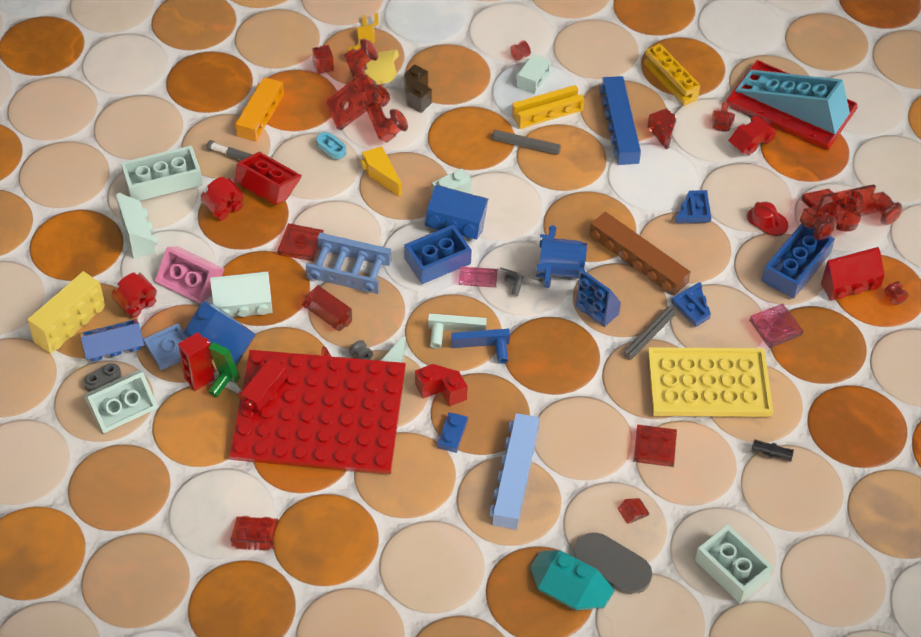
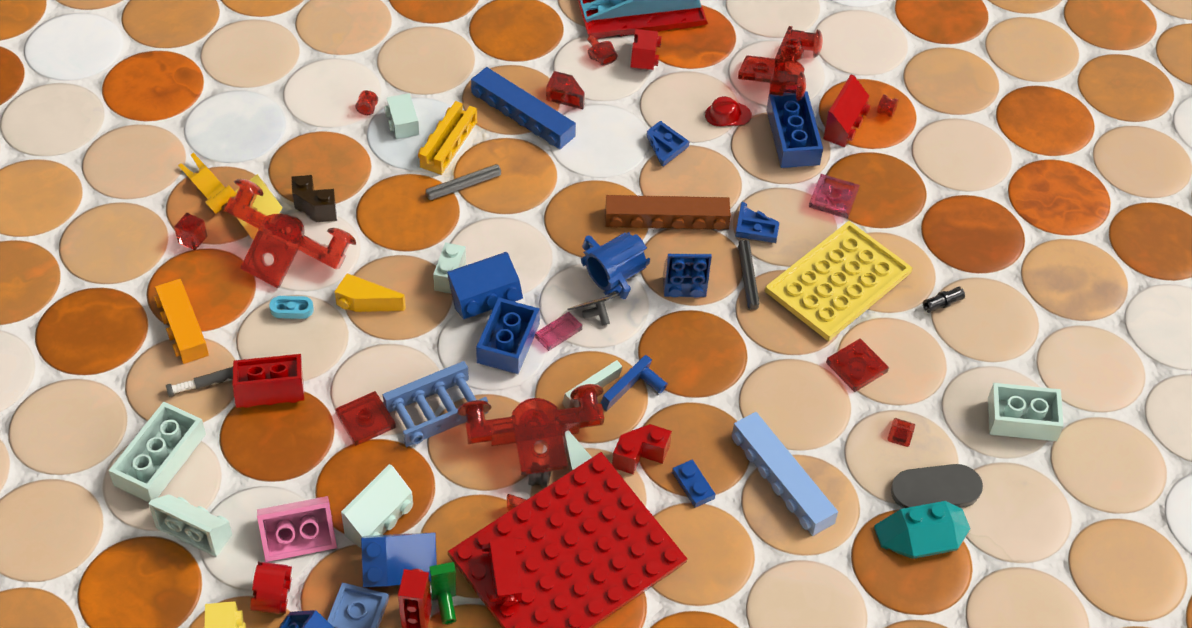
camera: 45 degrees left, 0 degrees up
(222, 197) = (249, 430): red brick -> none
(328, 308) = (466, 458): clear red brick -> none
(387, 317) = (535, 423): none -> clear red piece
(672, 74) = (521, 40): yellow brick -> none

